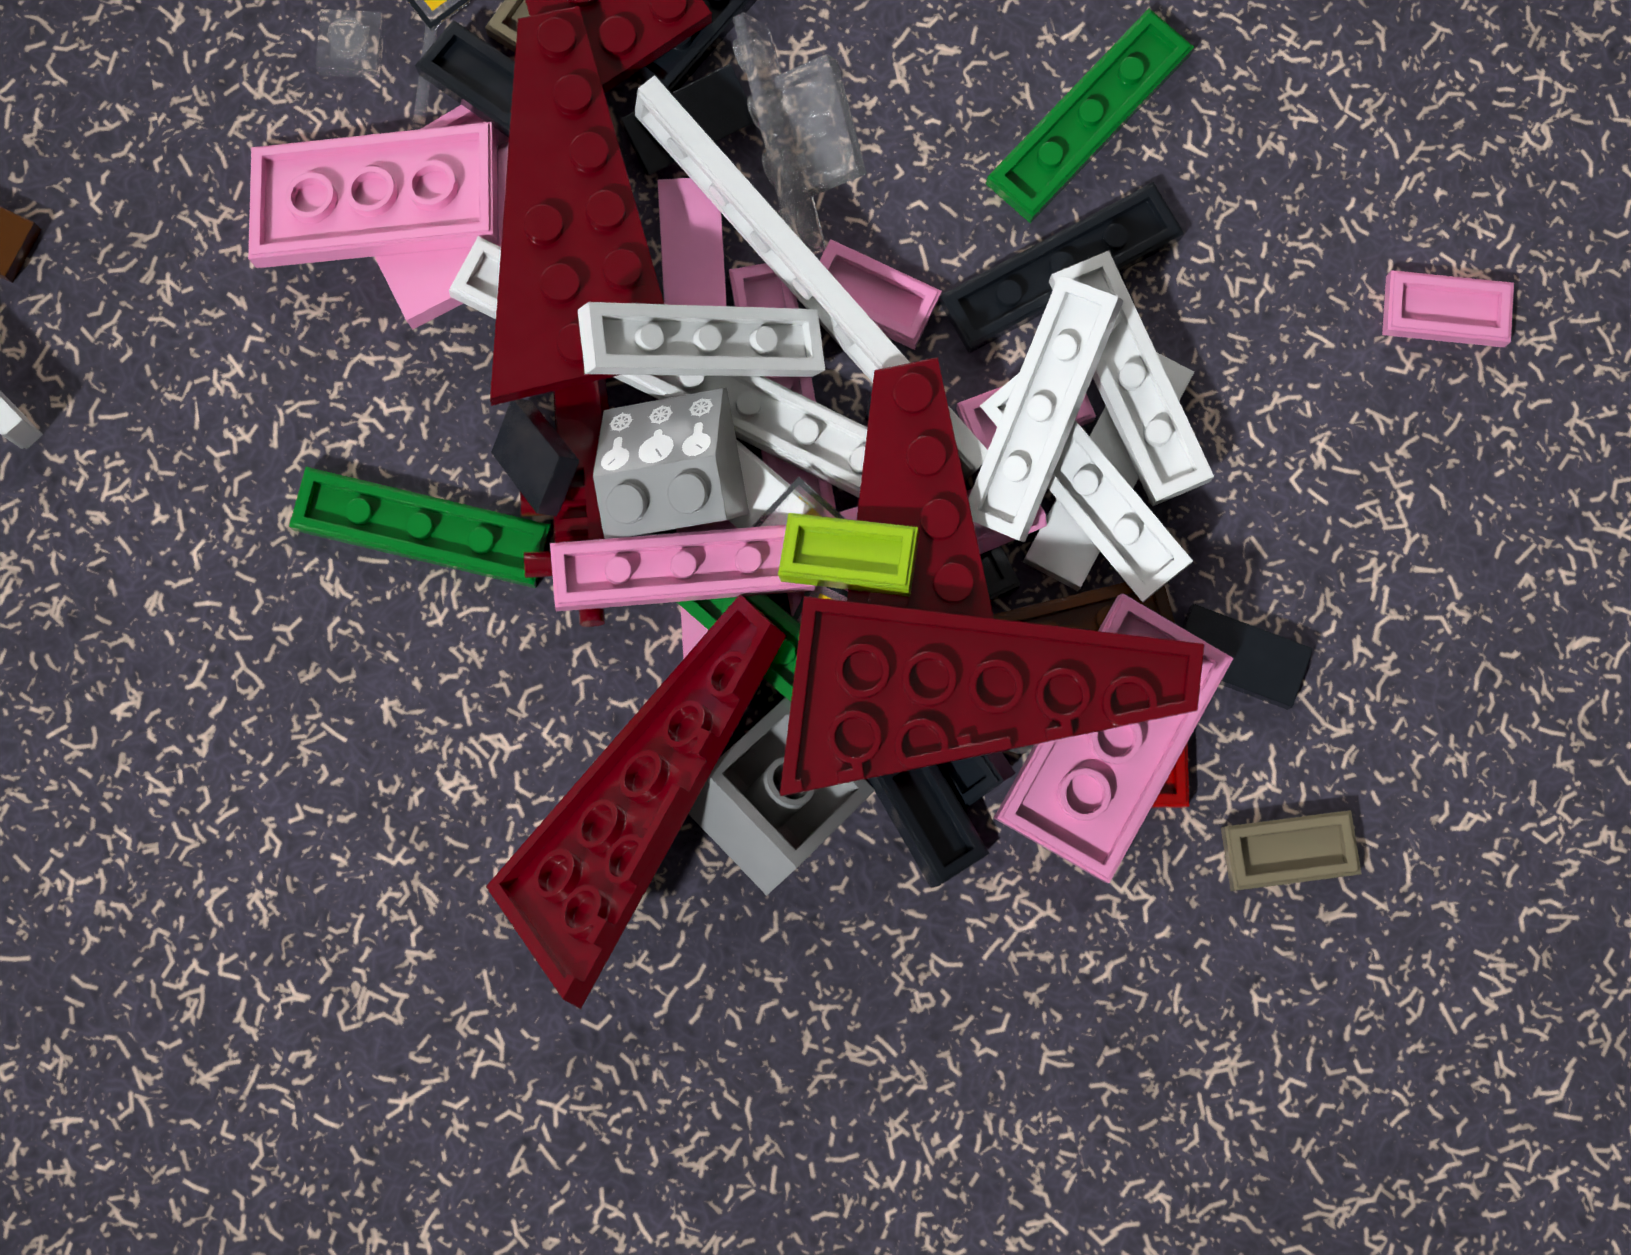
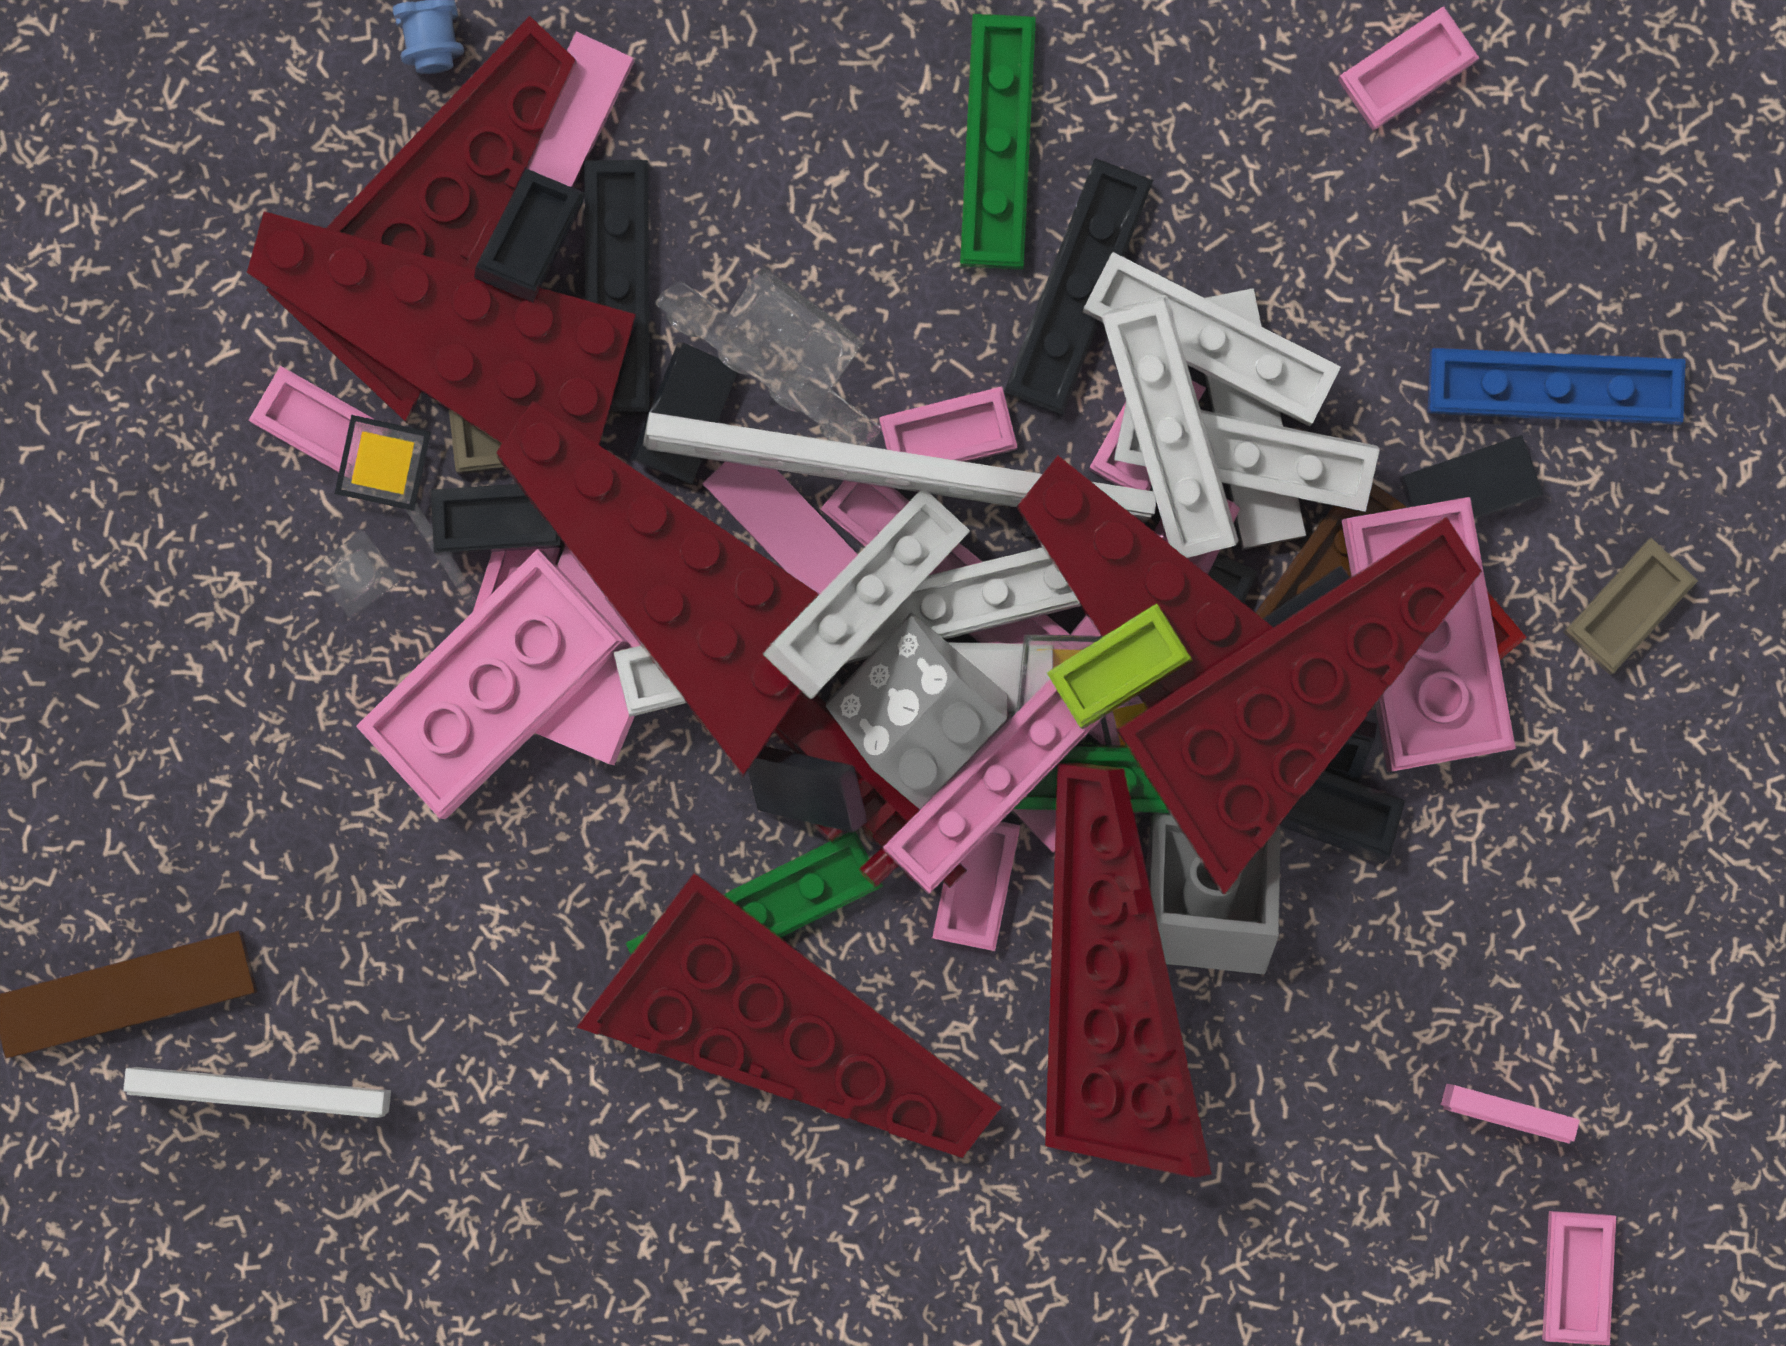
camera: 40 degrees left, 5 degrees up
(356, 598) = (757, 1011): none -> dark red wing
(593, 656) = (974, 906): none -> bright pink tile
(867, 1169) = (1510, 1113): none -> bright pink tile
(1370, 636) = (1556, 386): none -> blue tile

